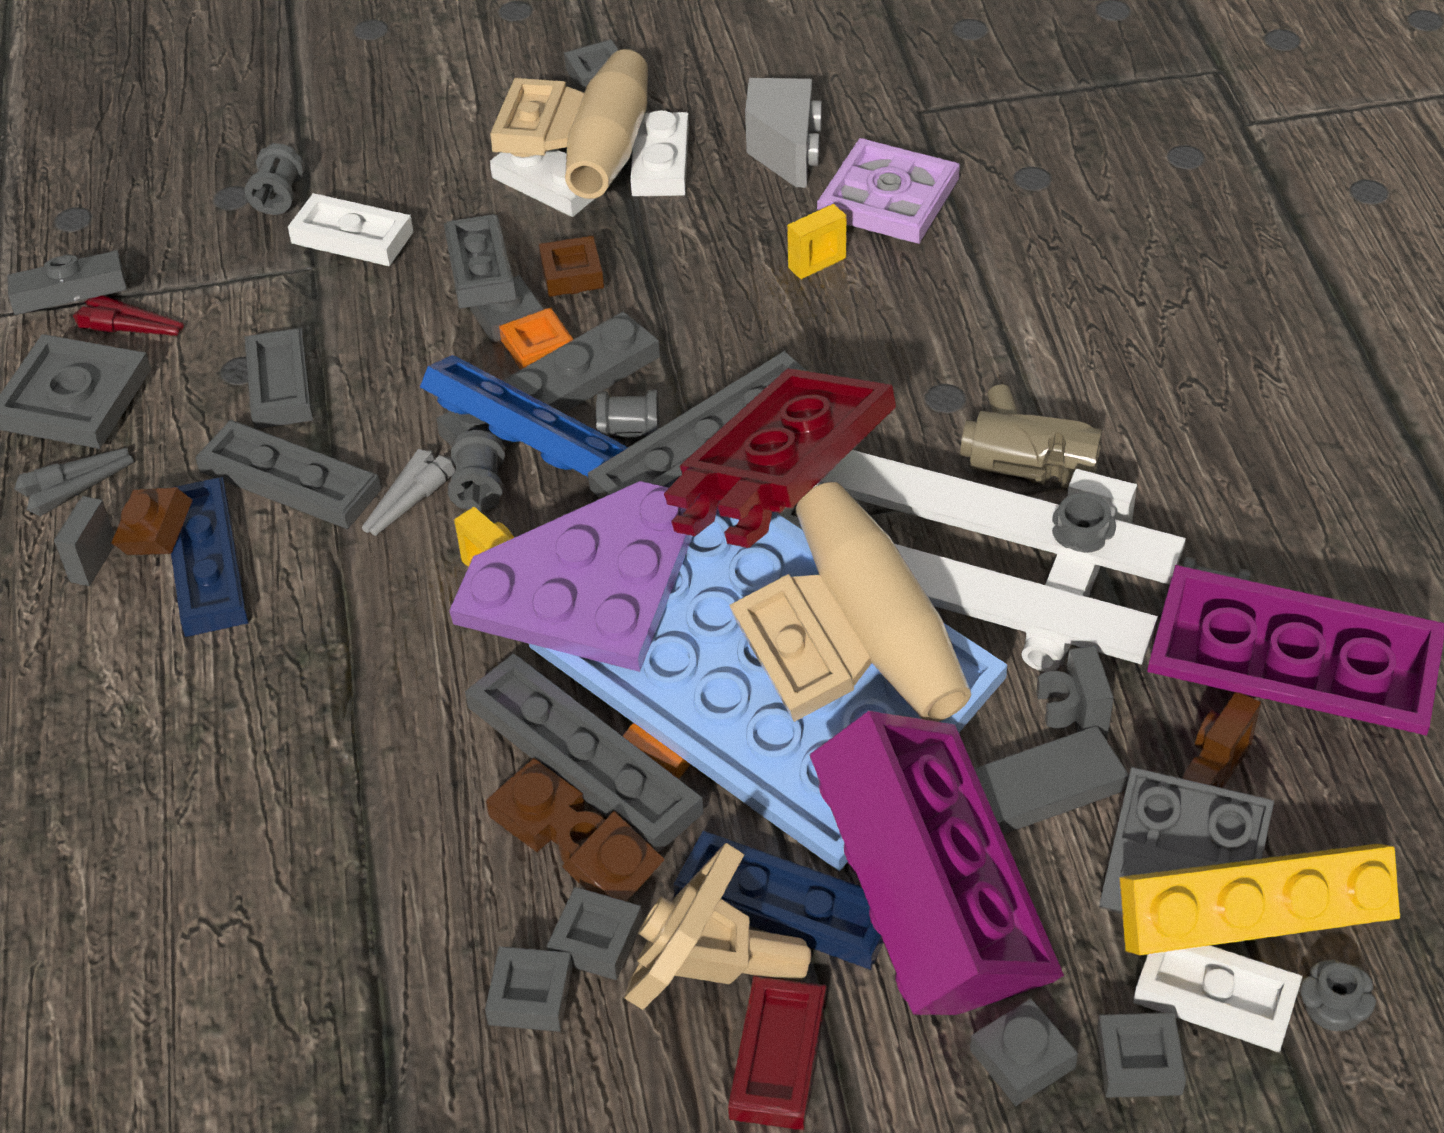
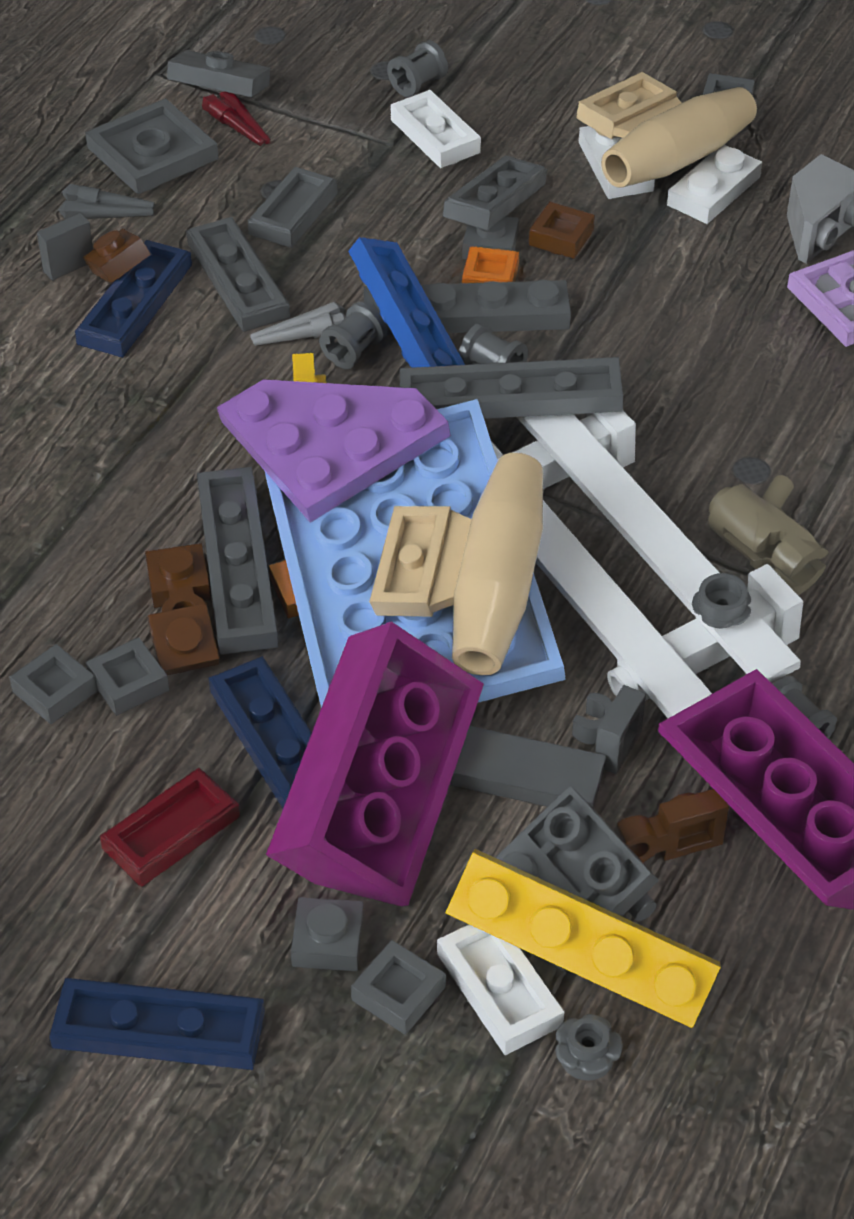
camera: 35 degrees right, 0 degrees up
(709, 938) = (179, 718): tan piece -> none
(775, 451) = (520, 415): dark red tile -> none
(816, 241) = (759, 302): yellow plate -> none

